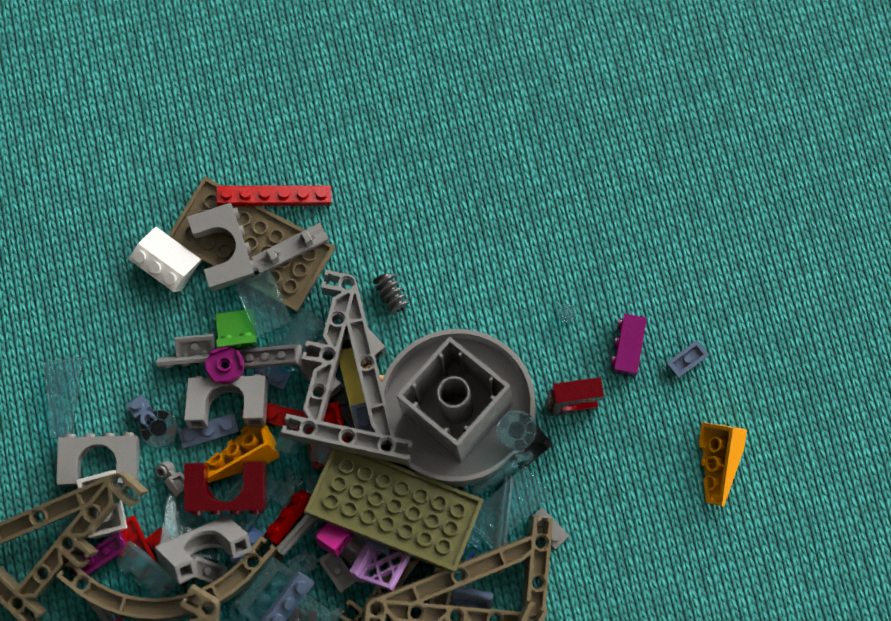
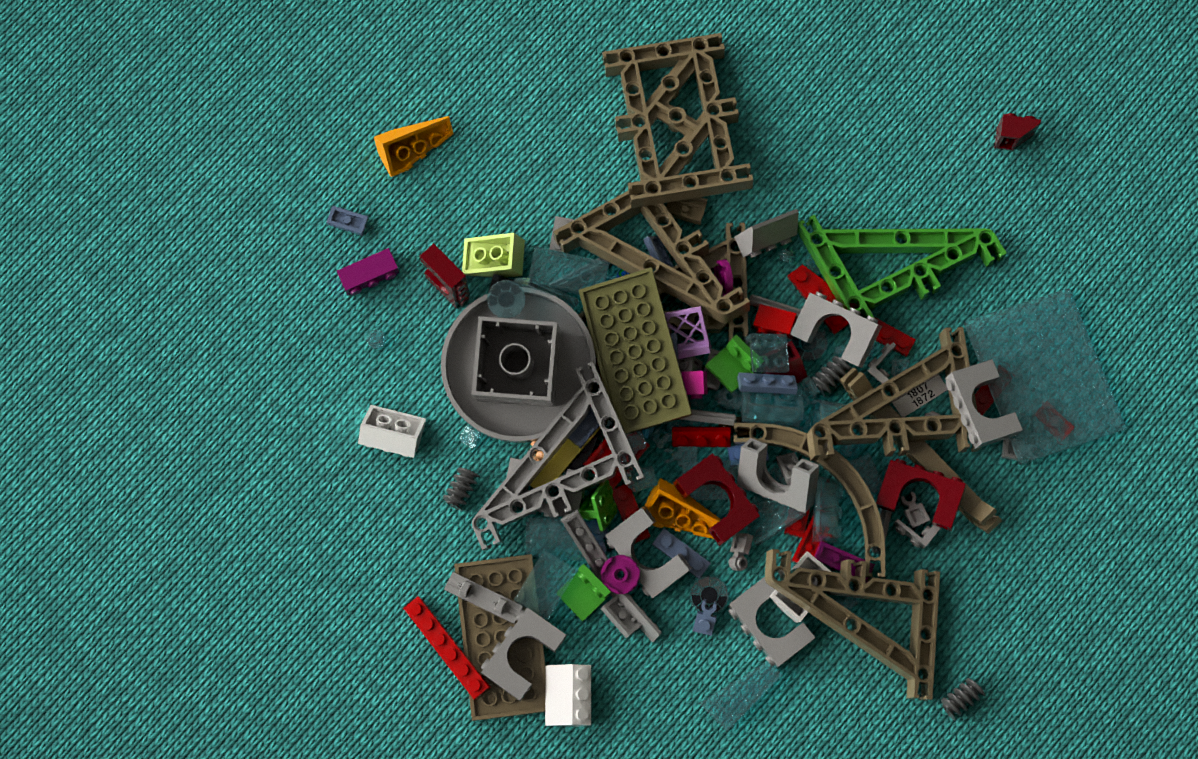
camera: 125 degrees left, 0 degrees up
(291, 387) = (600, 506): none -> bright green bracket
(329, 584) = (730, 361): none -> bright green bracket
(428, 328) = (465, 436): none -> clear light blue plate
(480, 272) = (391, 431): none -> white slope
(569, 457) = (494, 254): none -> yellowish green slope

